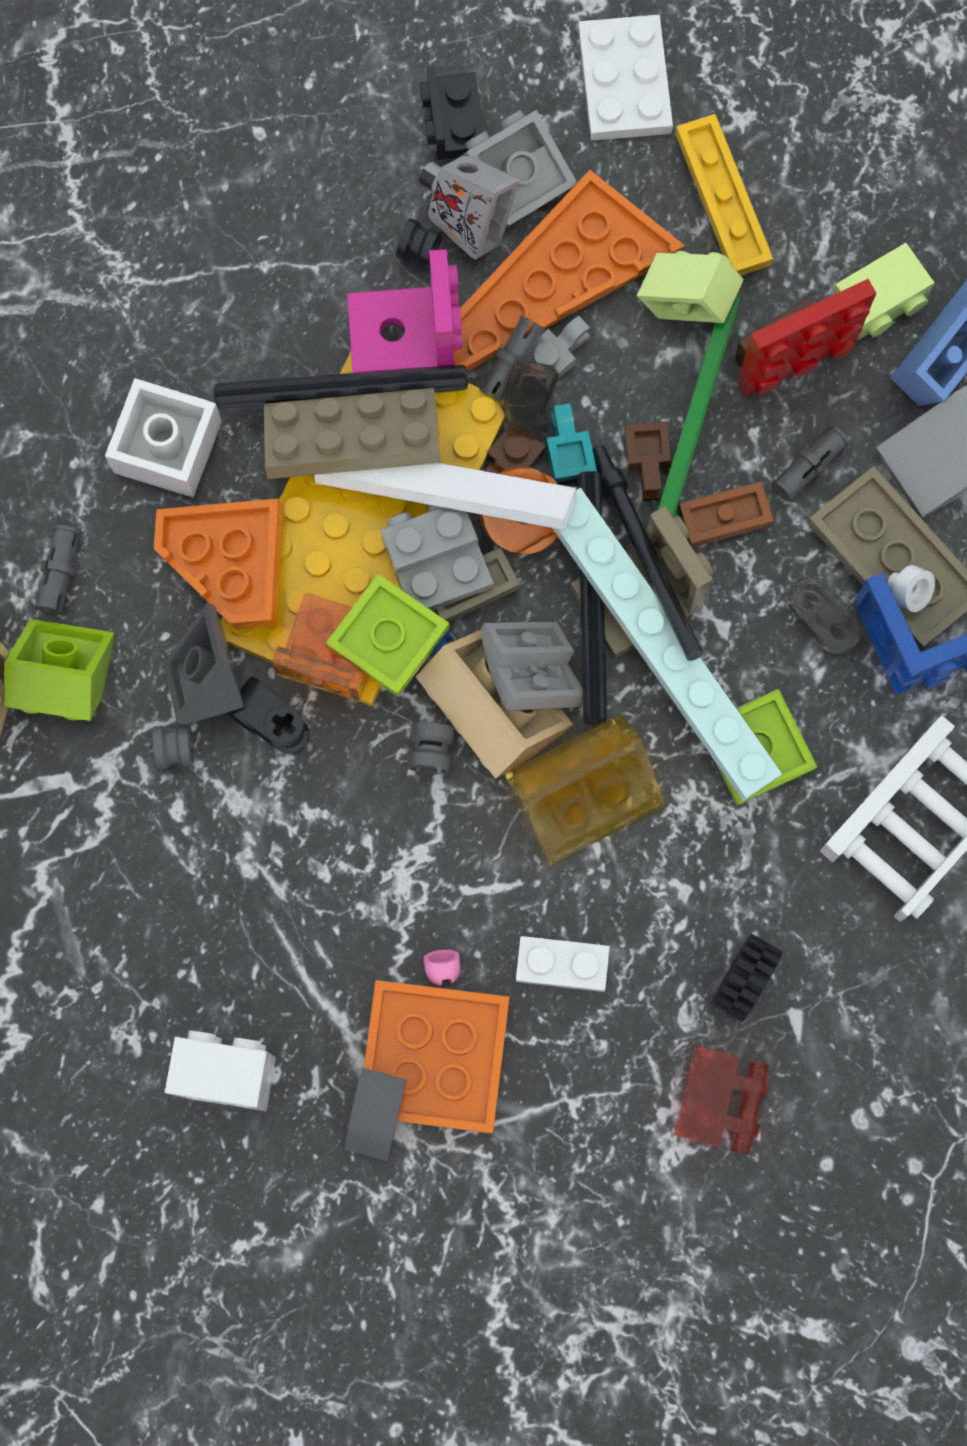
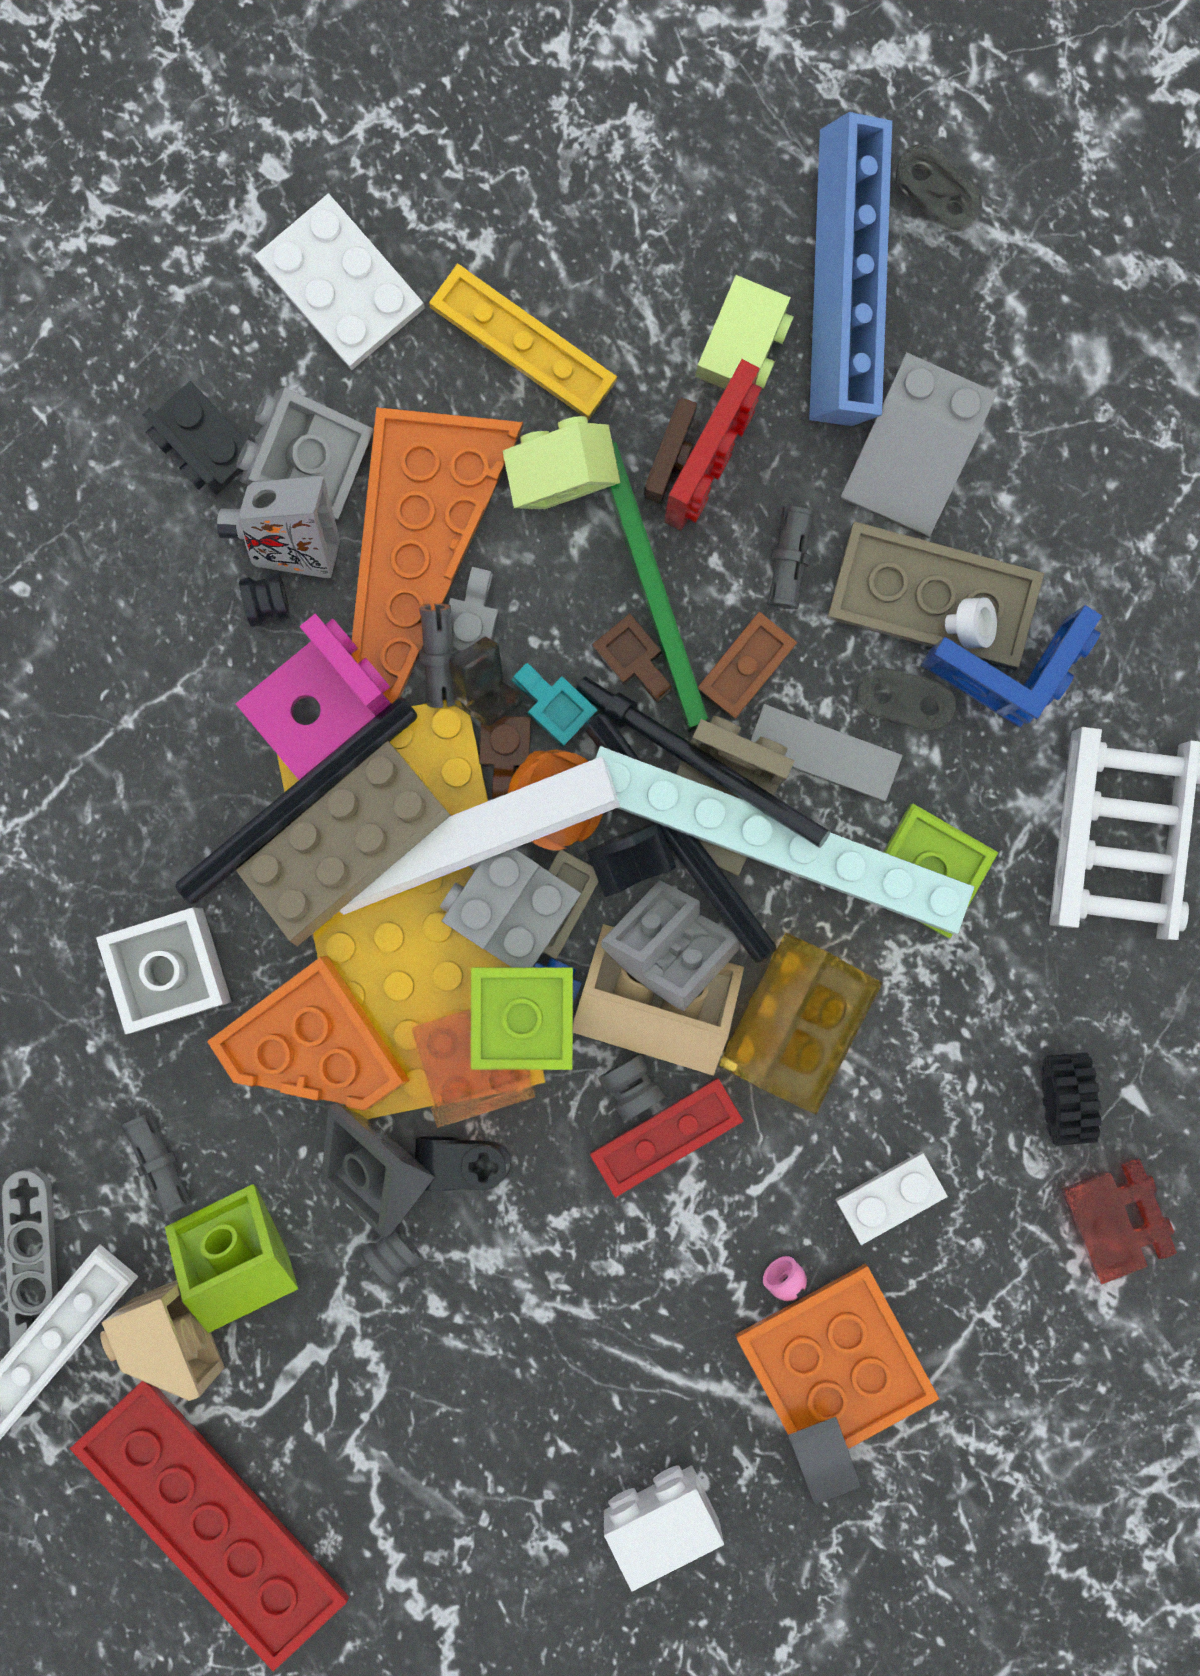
camera: 40 degrees left, 10 degrees up
(429, 802) = (666, 1137): none -> red plate
(546, 586) = (631, 859): none -> black panel
(744, 619) = (830, 753): none -> light grey tile

